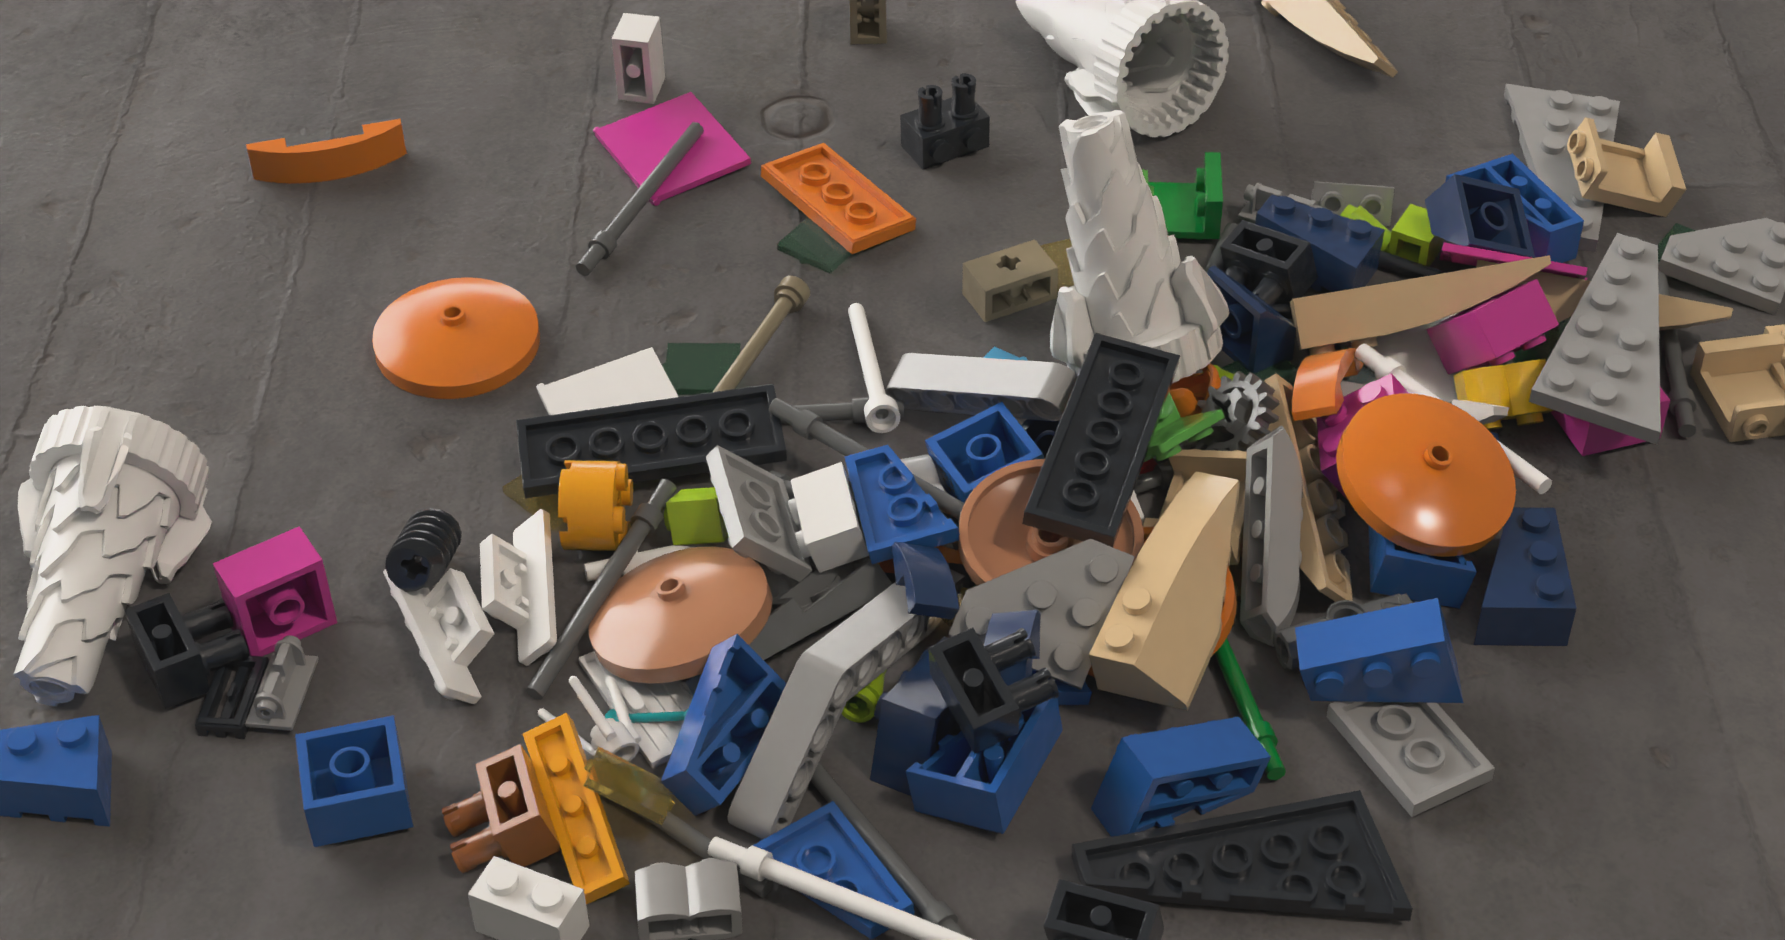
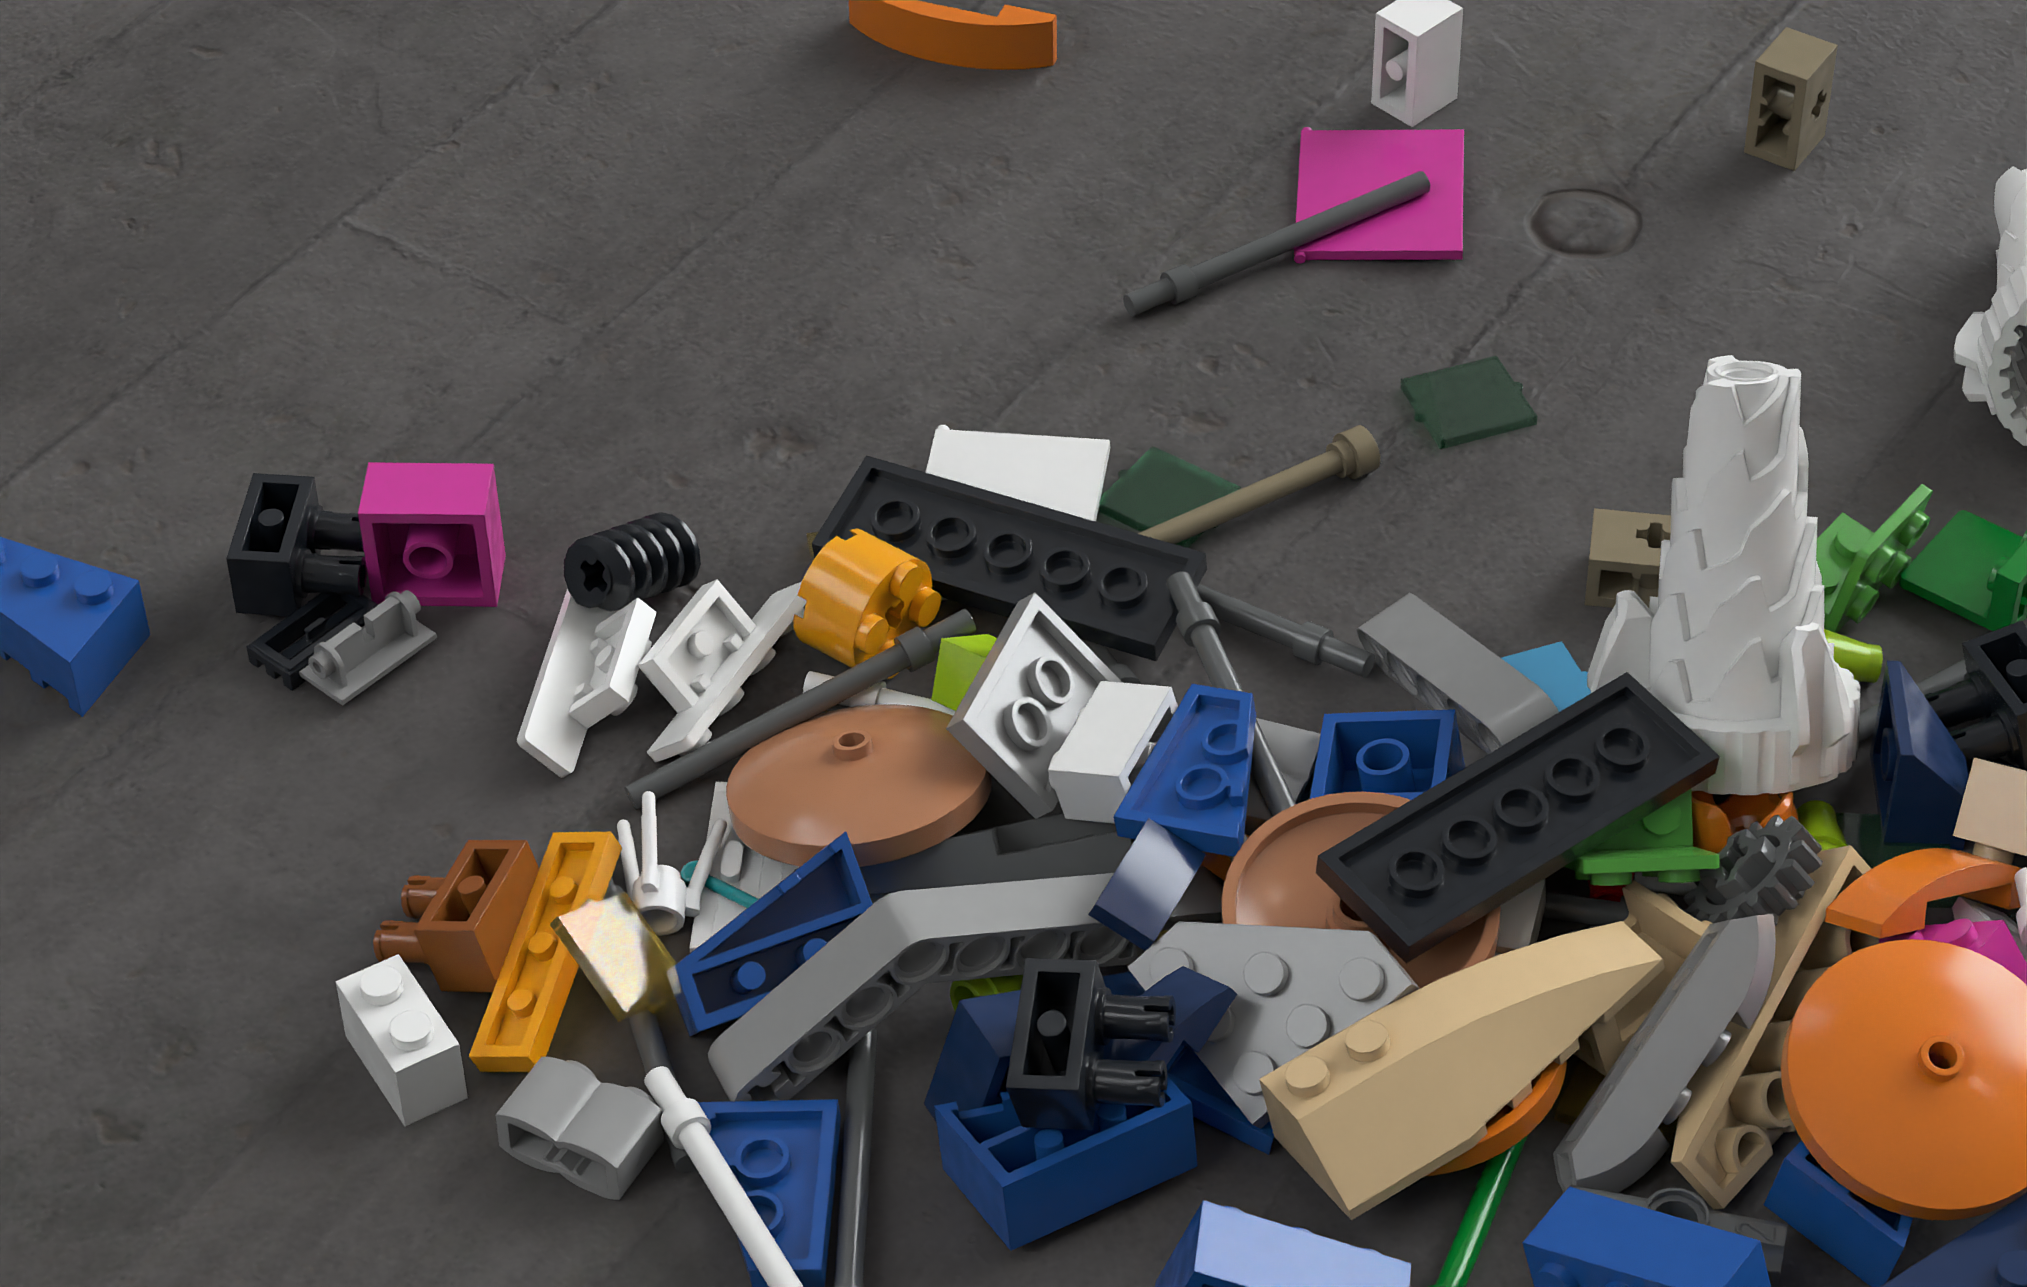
camera: 35 degrees right, 0 degrees up
(99, 510) = (317, 352): white cone -> none
(353, 781) = (339, 793): blue brick -> none
(456, 338) = (910, 325): orange dish -> none
(838, 198) = (1532, 353): orange tile -> none
(880, 410) = (1322, 651): white piece -> none
(946, 127) = (1751, 315): black brick -> none

